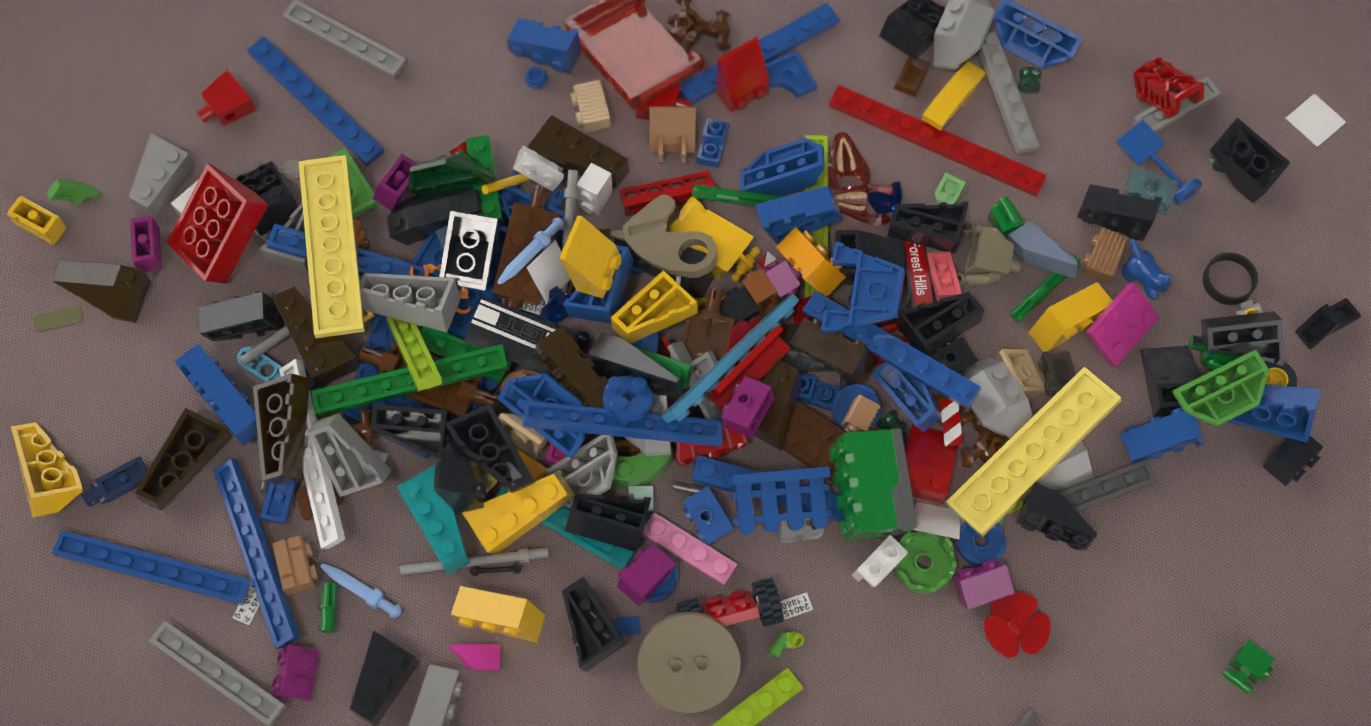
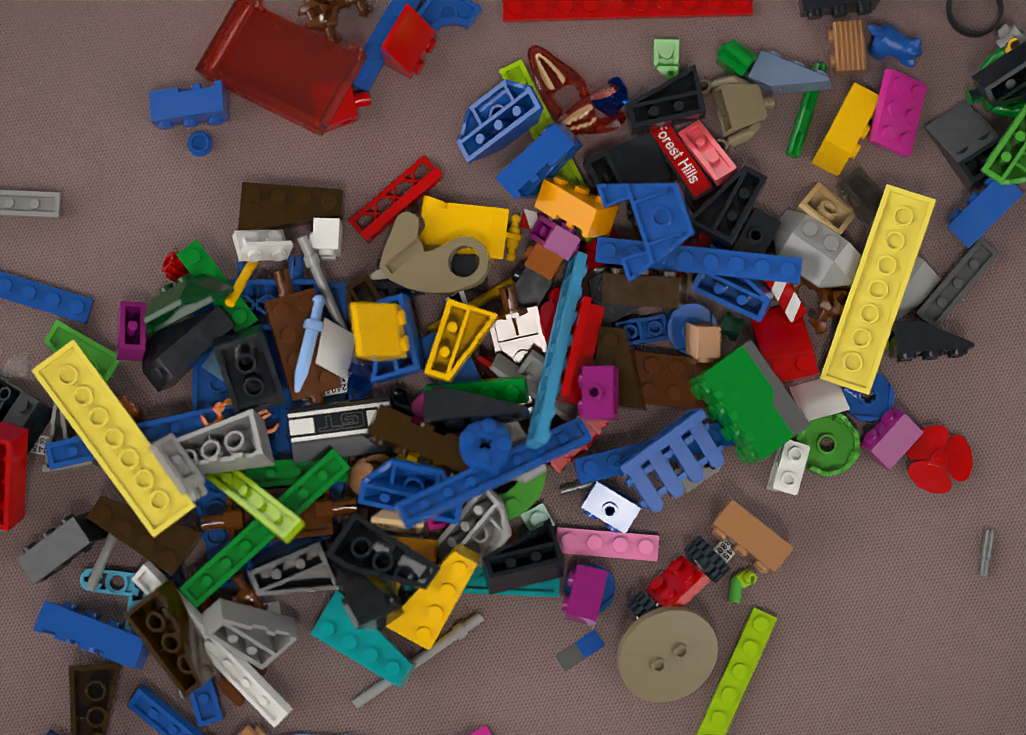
camera: 25 degrees left, 15 degrees up
(368, 290) = (179, 467): none -> light grey hinge
(498, 613) = (468, 700): yellow wedge -> none
(516, 568) = (423, 669): black hinge -> none
(591, 106) = (272, 147): tan brick -> none
(591, 625) = (559, 664): black wedge -> none
(672, 130) = (367, 134): medium nougat plate -> none
(712, 143) = (412, 123): blue slope -> none
(730, 196) = (468, 172): green axle -> none
(815, 602) = (750, 538): none -> medium nougat brick

